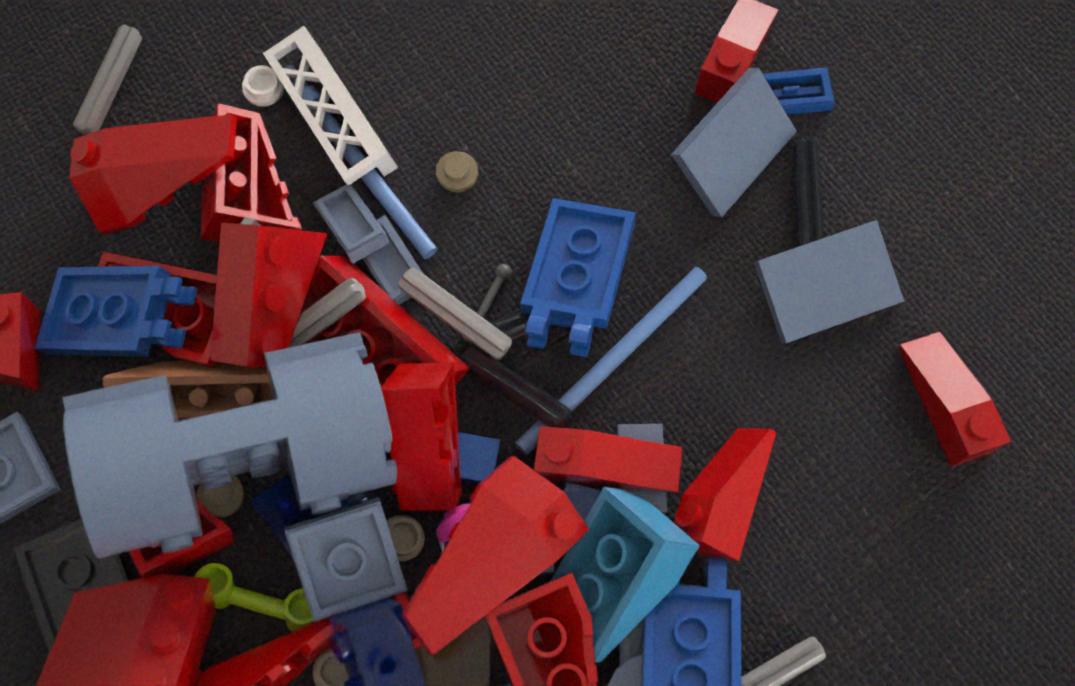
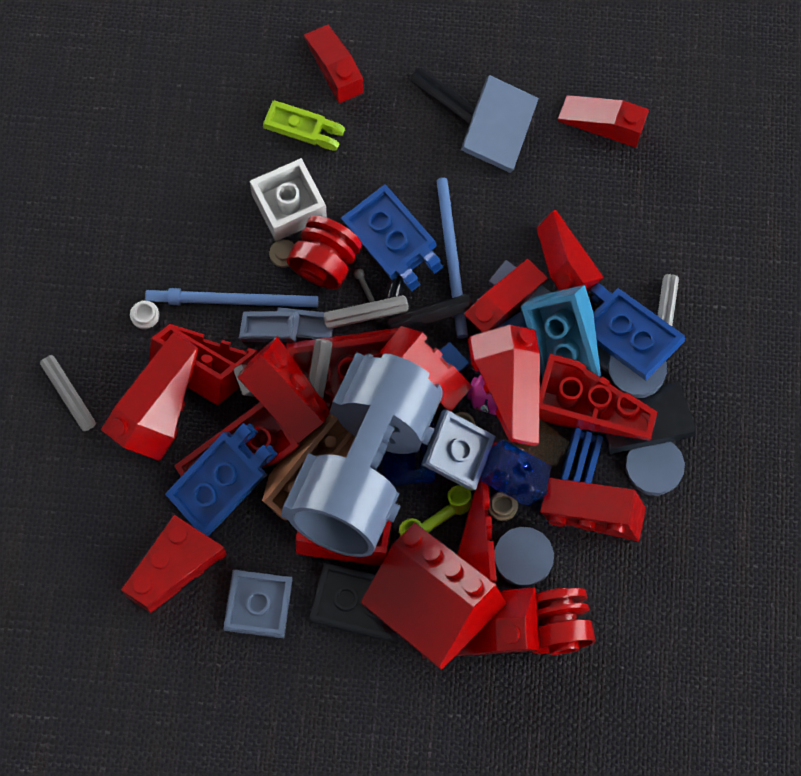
camera: 50 degrees left, 0 degrees up
(343, 101) = (191, 278): white fence -> none
(485, 209) = (324, 252): none -> red wheel
(520, 123) = (287, 199): none -> white brick
(629, 72) = (302, 125): none -> lime hinge
(734, 142) = (389, 106): sand blue tile -> none
(802, 99) = (368, 75): blue tile -> none

